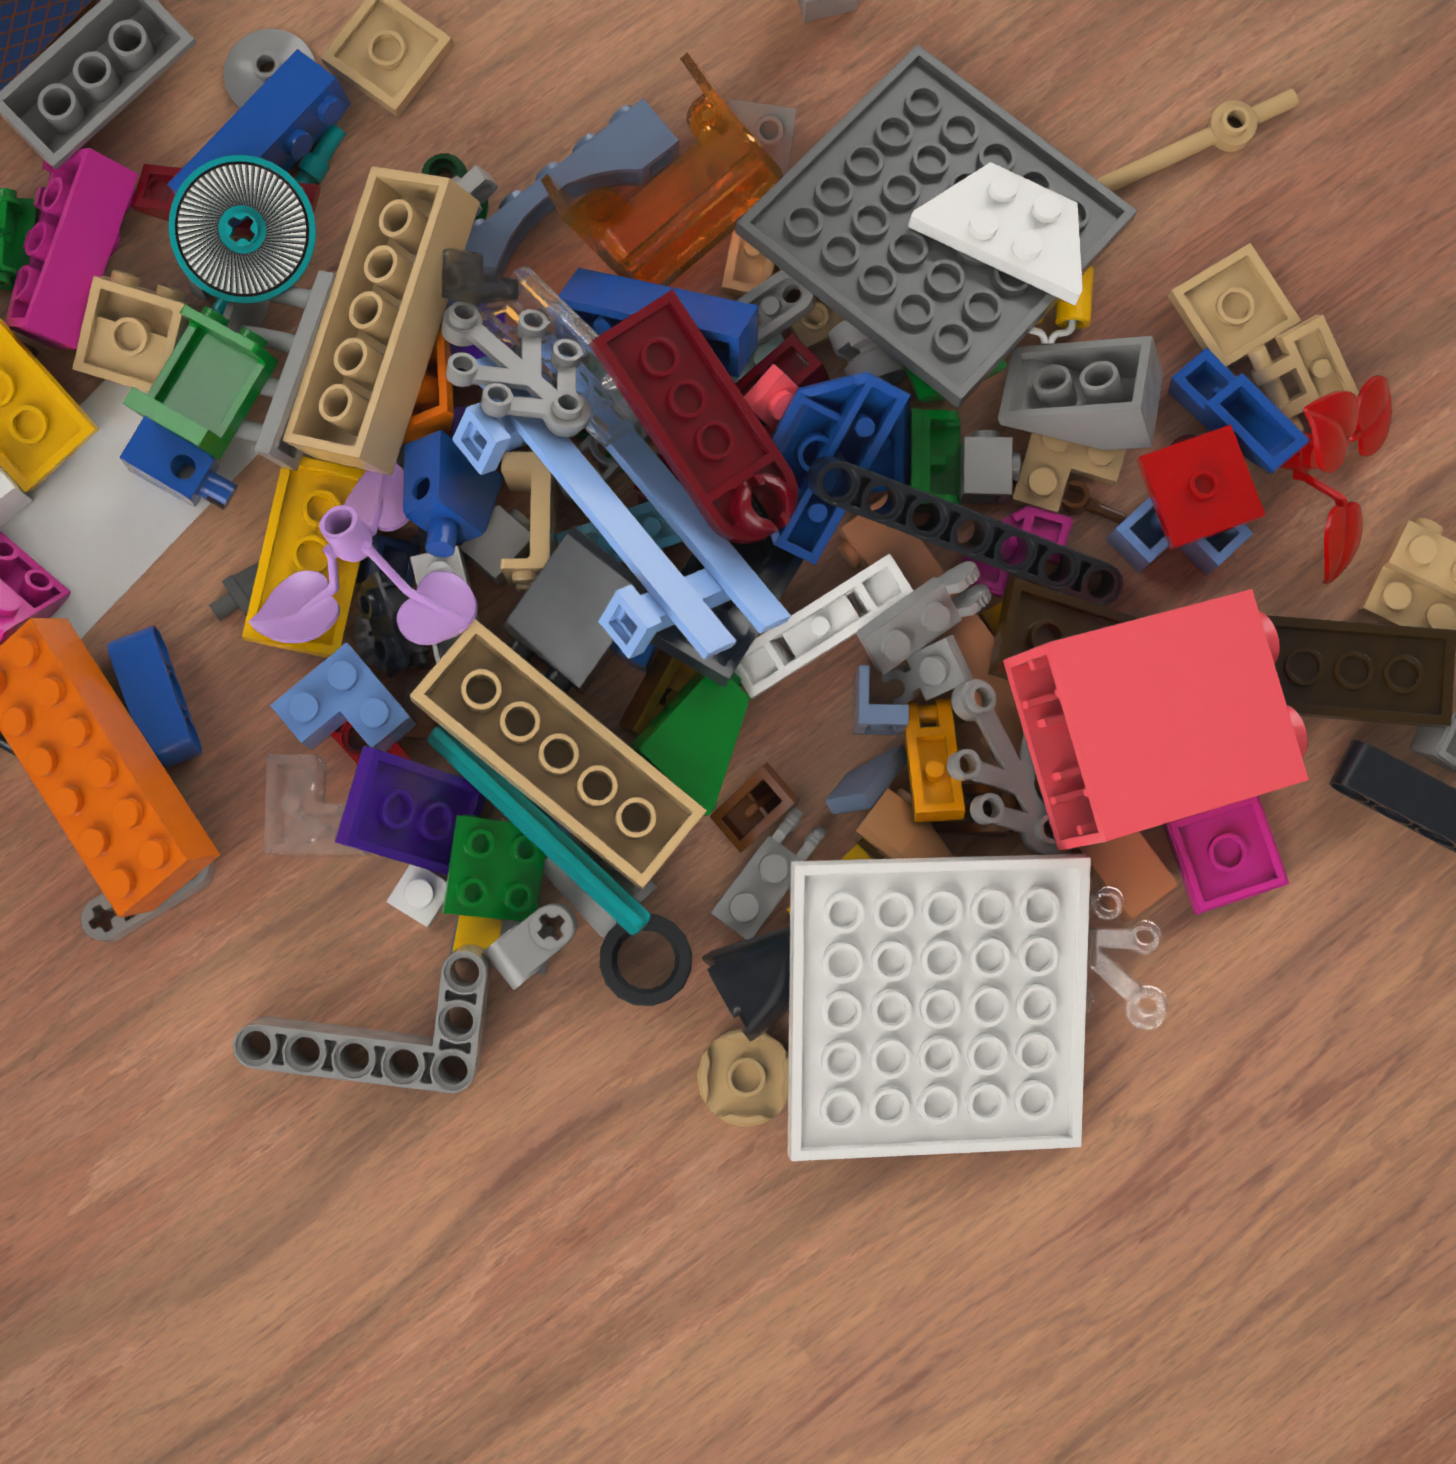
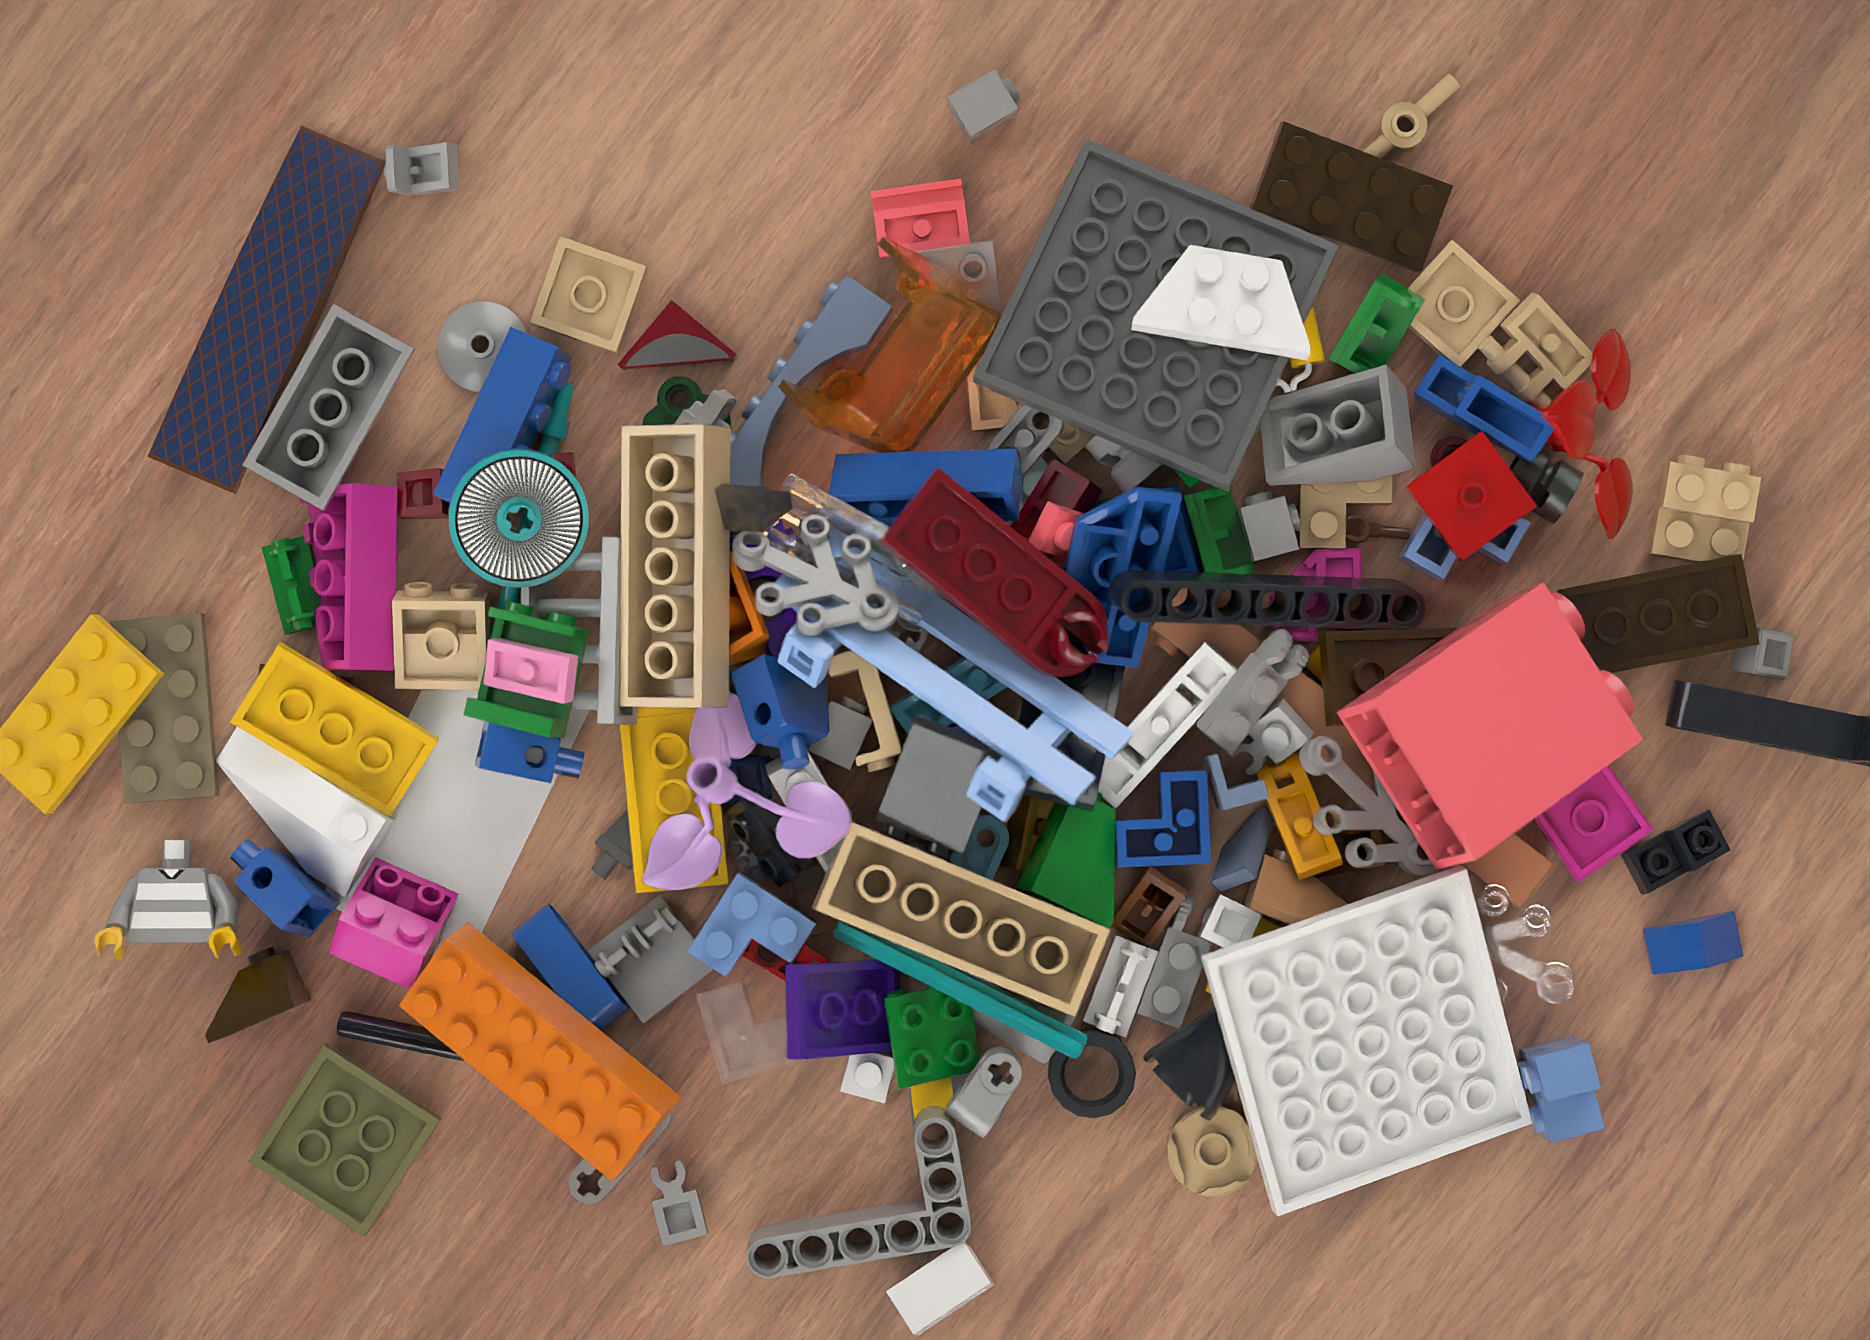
camera: 10 degrees left, 5 degrees up
(184, 975) = (678, 1211): none -> light grey plate
(204, 378) = (530, 670): none -> bright pink plate
(235, 713) = (649, 959): none -> light grey hinge
(424, 1134) = (940, 1288): none -> white hinge
(456, 121) = (675, 341): none -> tile
(606, 711) = (979, 859): none -> medium azure plate
(702, 881) = (1120, 986): none -> white hinge
(736, 66) = (921, 215): none -> coral plate
(801, 743) = (1178, 834): none -> blue brick
(831, 842) = (1229, 923): none -> white tile
(1123, 1119) = (1562, 1088): none -> medium blue brick
(1153, 299) = (1377, 326): none -> green hinge
(1163, 173) = (1350, 196): none -> dark brown plate
(1293, 503) = (1547, 484): none -> pearl dark grey wheel
(1296, 1012) = (1693, 943): none -> blue slope
(1304, 914) = (1675, 852): none -> black slope

